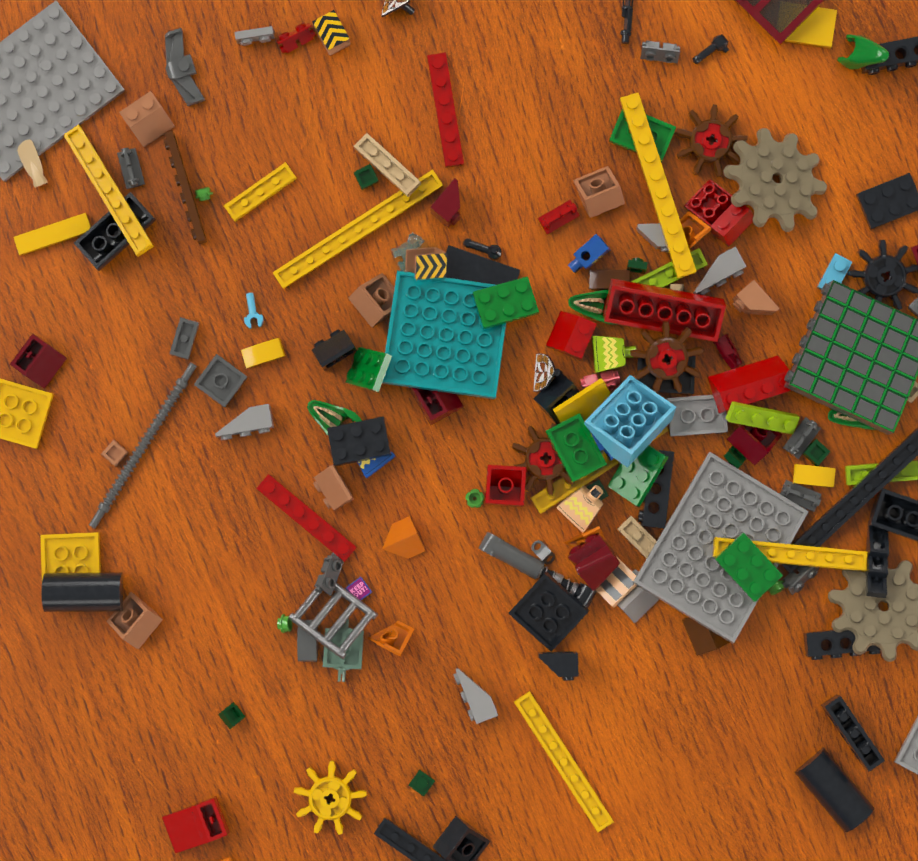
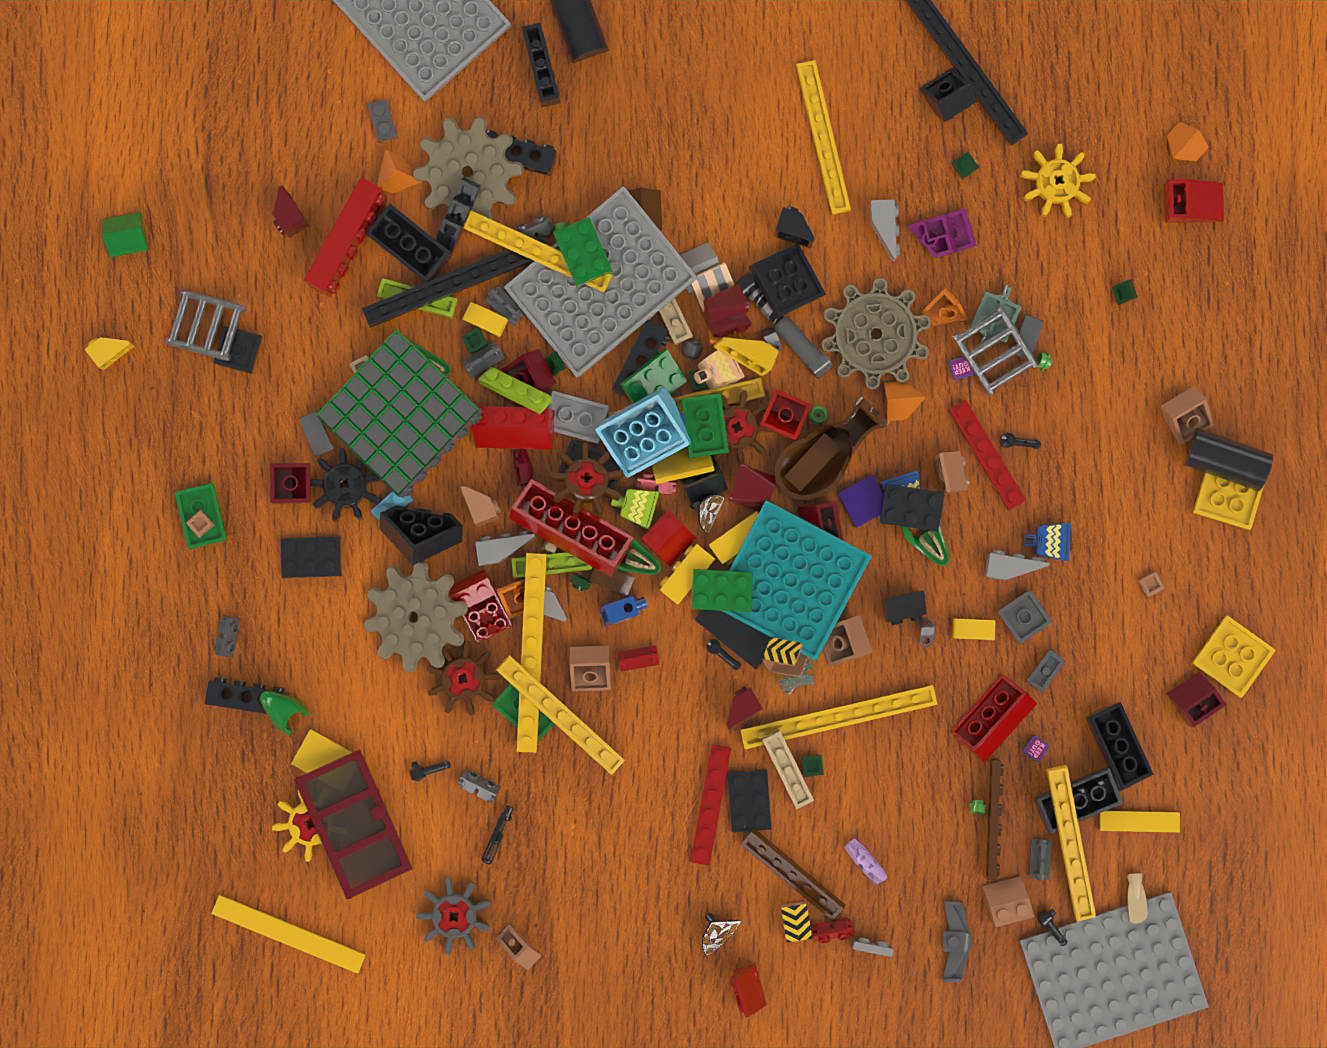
camera: 160 degrees left, 0 degrees up
(94, 294) = (1119, 745): none -> black brick
(104, 506) = (1063, 628): dark grey hose -> none
(107, 116) = (1045, 919): none -> black piece
(168, 265) = (1036, 748): none -> tile
(217, 278) = (993, 717): none -> red slope
(220, 458) = (1051, 541): none -> blue torso
(252, 312) = (969, 673): medium azure bar -> none
(260, 192) = (921, 789): yellow tile -> none
(287, 109) = (865, 861): none -> lavender hinge
(290, 538) = (1009, 440): none -> black piece
(305, 335) = (927, 631): none -> dark grey piece
(331, 569) = (989, 385): dark grey hinge -> none
(349, 74) = (793, 874): none -> reddish brown plate
(368, 369) = (878, 573): green plate -> none
(406, 434) = (862, 501): none -> dark purple tile
(411, 126) = (749, 800): none -> black plate
(417, 711) = (945, 233): none -> magenta slope
(457, 458) = (821, 458): none -> reddish brown animal
(470, 593) = (879, 312): none -> dark tan plate
(511, 408) = (752, 488): none -> dark red piece
(513, 350) = (729, 544): none -> yellow slope
(546, 298) = (682, 579): none -> yellow brick
(552, 530) = (750, 353): none -> yellow slope
(611, 138) = (560, 714): none -> yellow tile
(613, 518) = (692, 349): none -> dark grey piece
(800, 257) = (420, 532): none -> black brick

